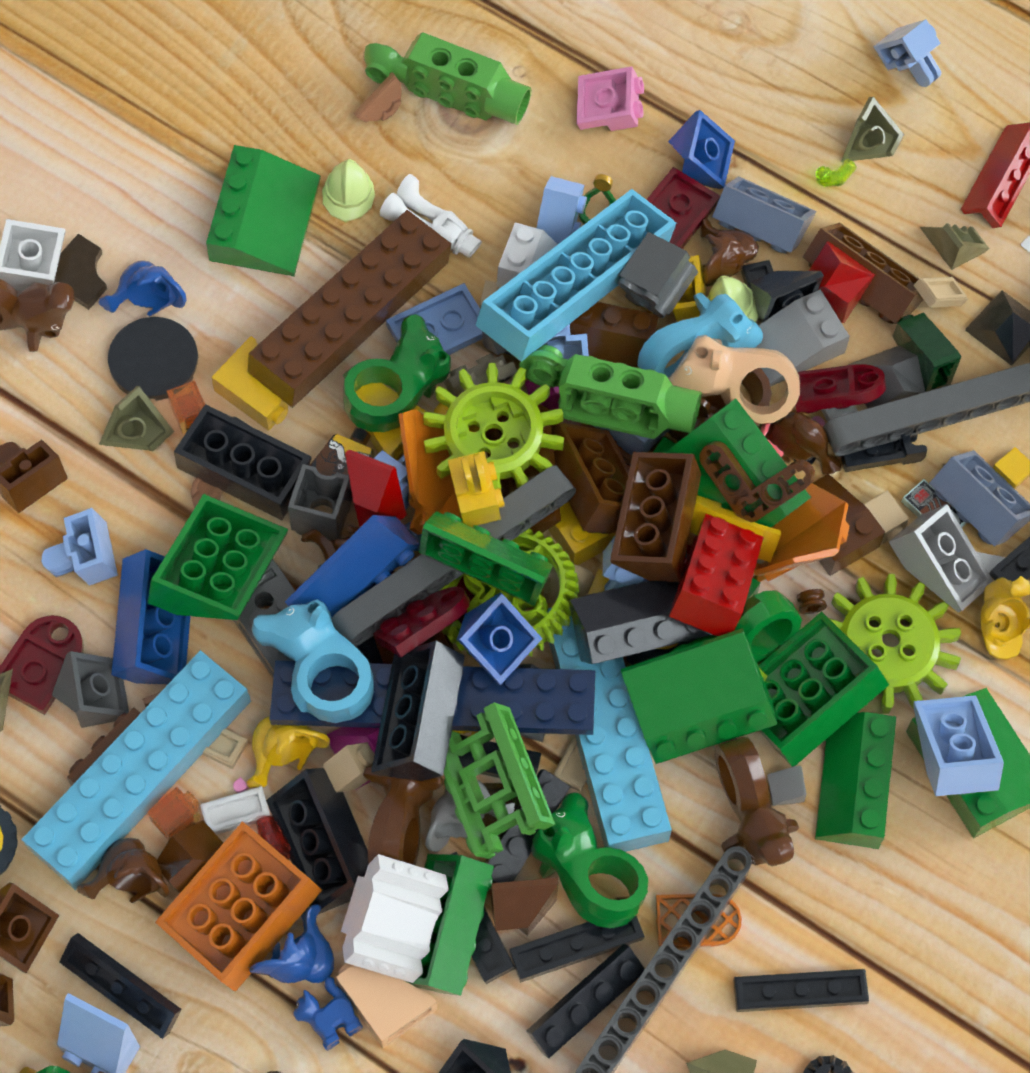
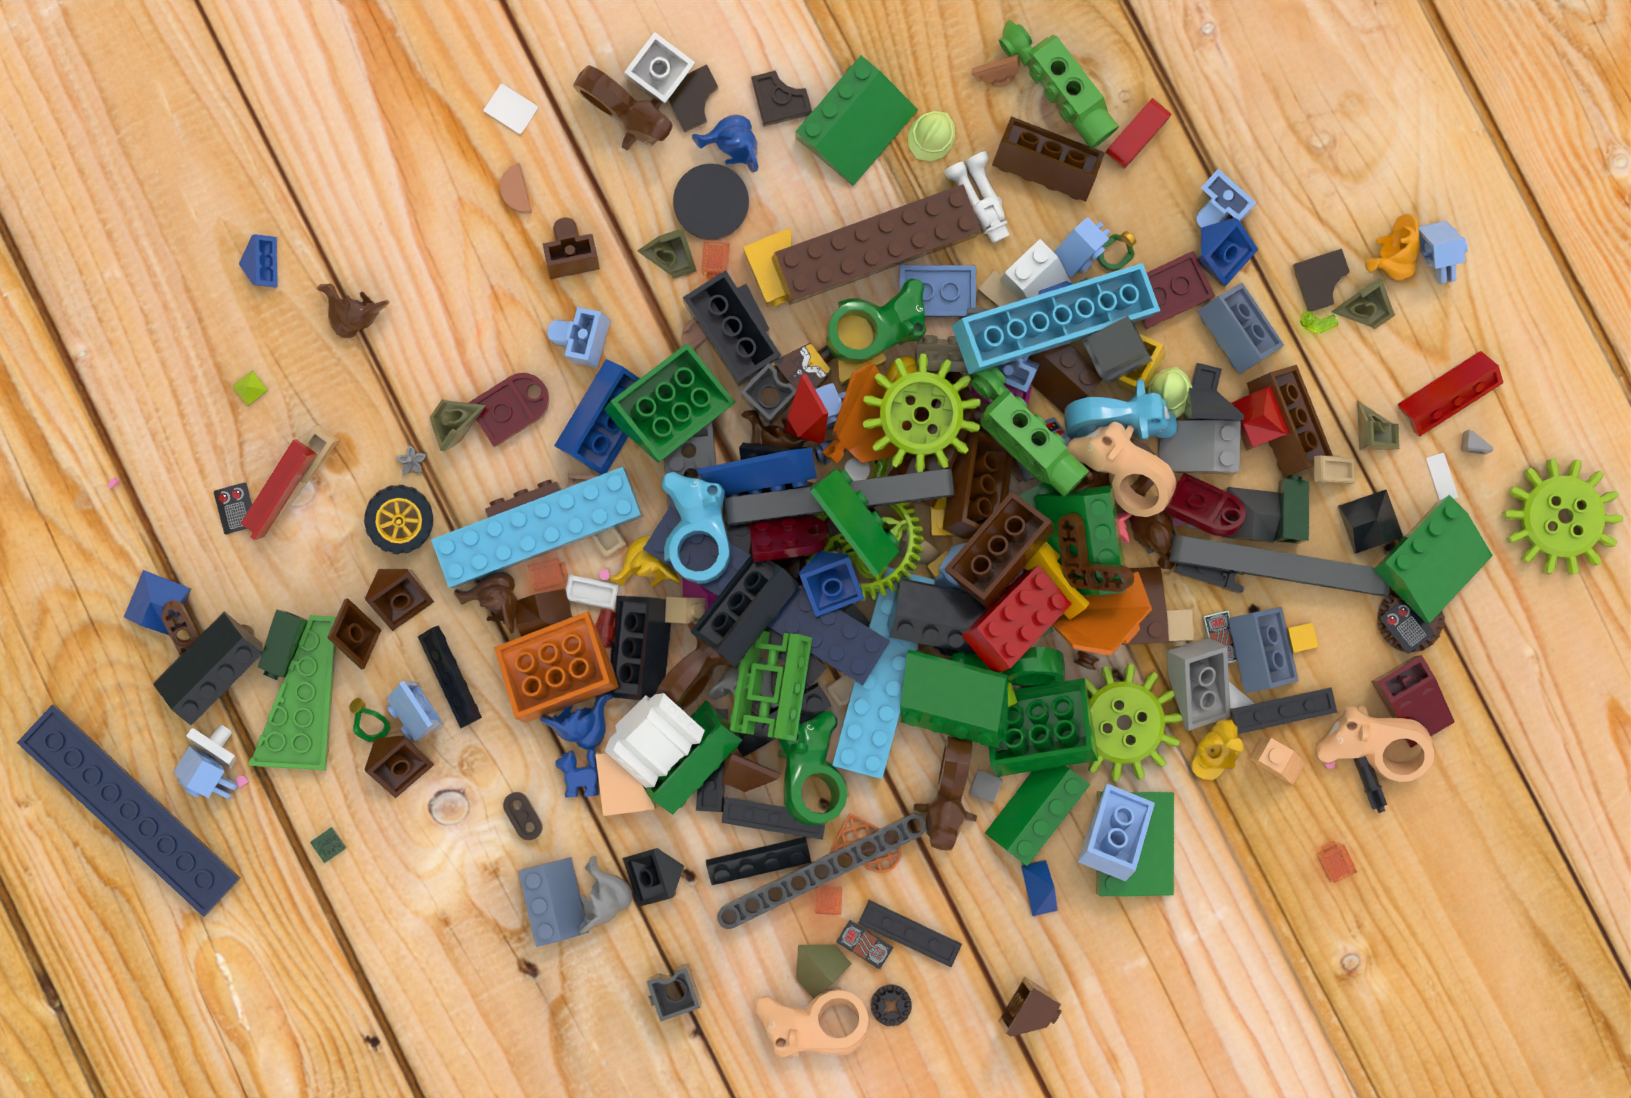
camera: 30 degrees right, 20 degrees up
(90, 689) = (533, 449): dark grey slope -> none
(171, 234) = (777, 100): none -> dark brown tile
(475, 490) = (877, 460): yellow brick -> none
(479, 156) = (1048, 159): none -> reddish brown slope
(553, 92) = (1138, 133): none -> red beam
(610, 99) = (1178, 164): bright pink plate -> none
(674, 105) = (1224, 200): none -> light blue brick
(690, 999) = (828, 900): none -> clear orange brick
(730, 251) = (1193, 348): reddish brown piece -> none
(758, 1030) = (864, 944): none -> tile
(810, 135) = (1318, 278): none -> dark brown tile
(870, 70) = (1398, 249): none -> light orange piece
(911, 862) = (1039, 888): none -> blue slope
(984, 976) = (1029, 1009): none -> reddish brown slope

